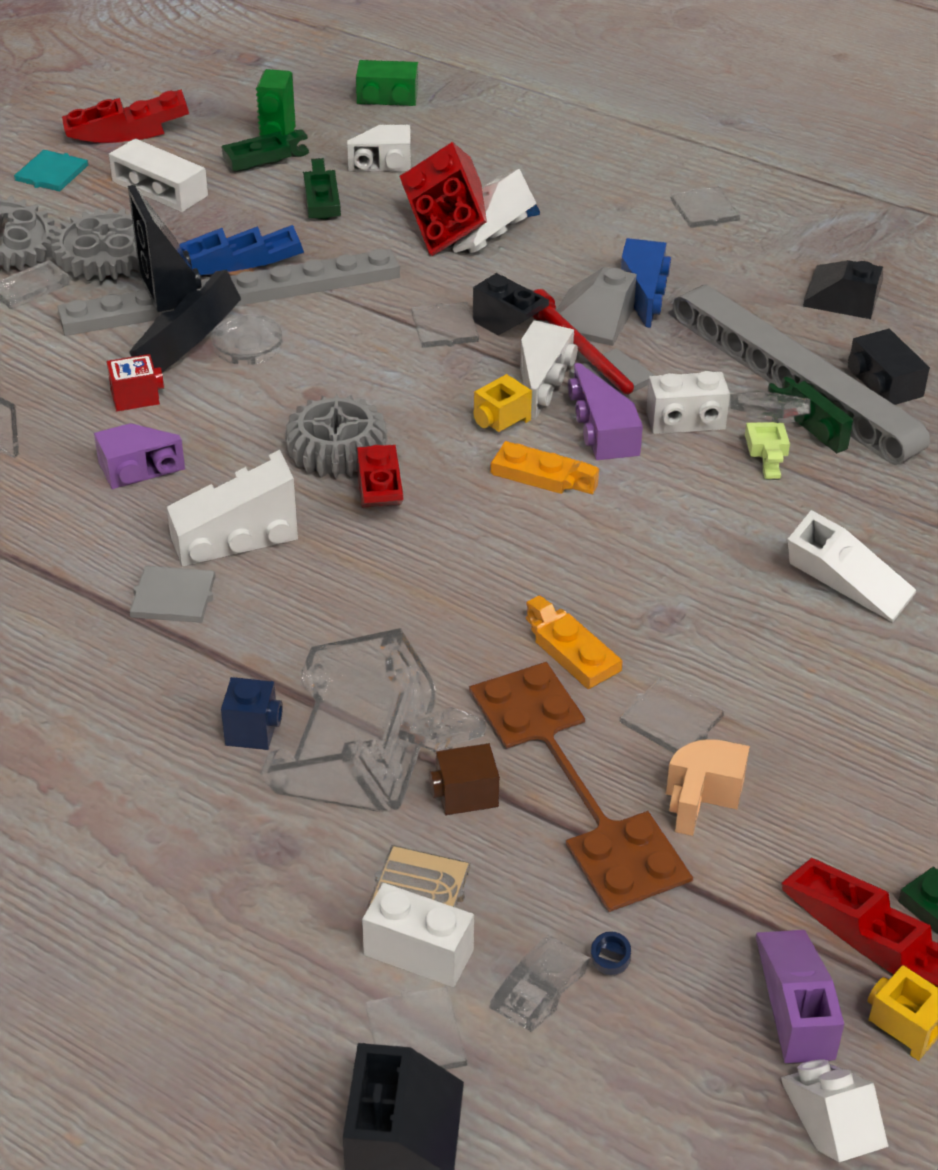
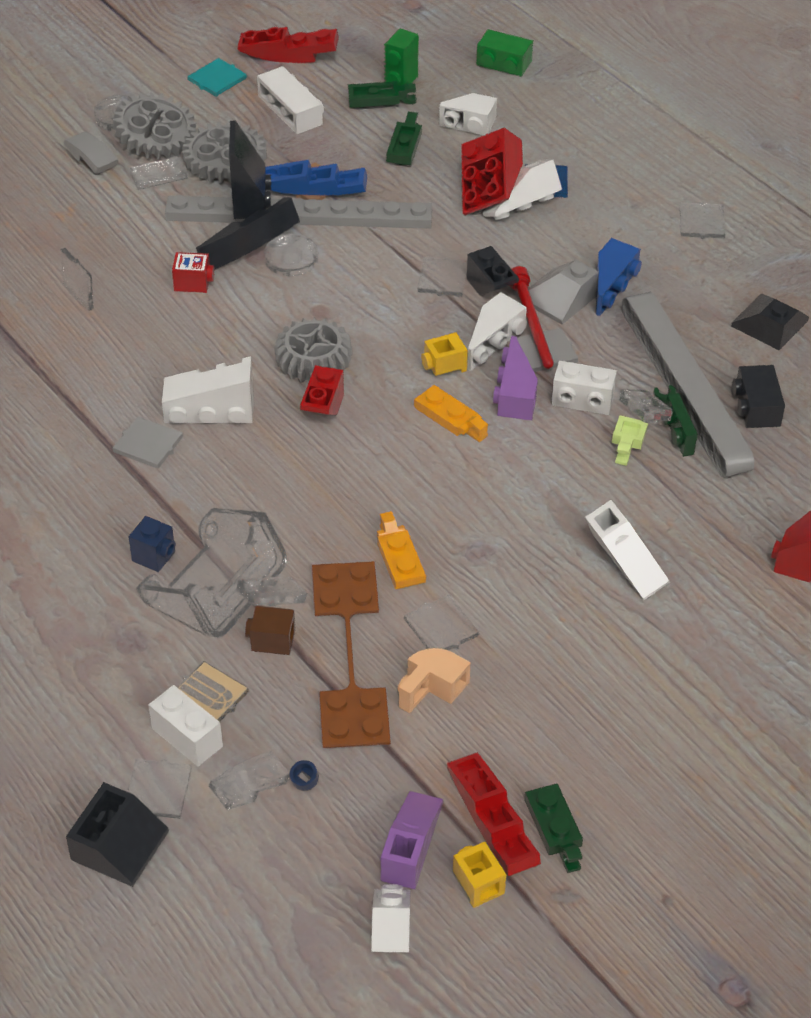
camera: 20 degrees right, 5 degrees up
(137, 454) = (168, 330): medium lavender slope -> none

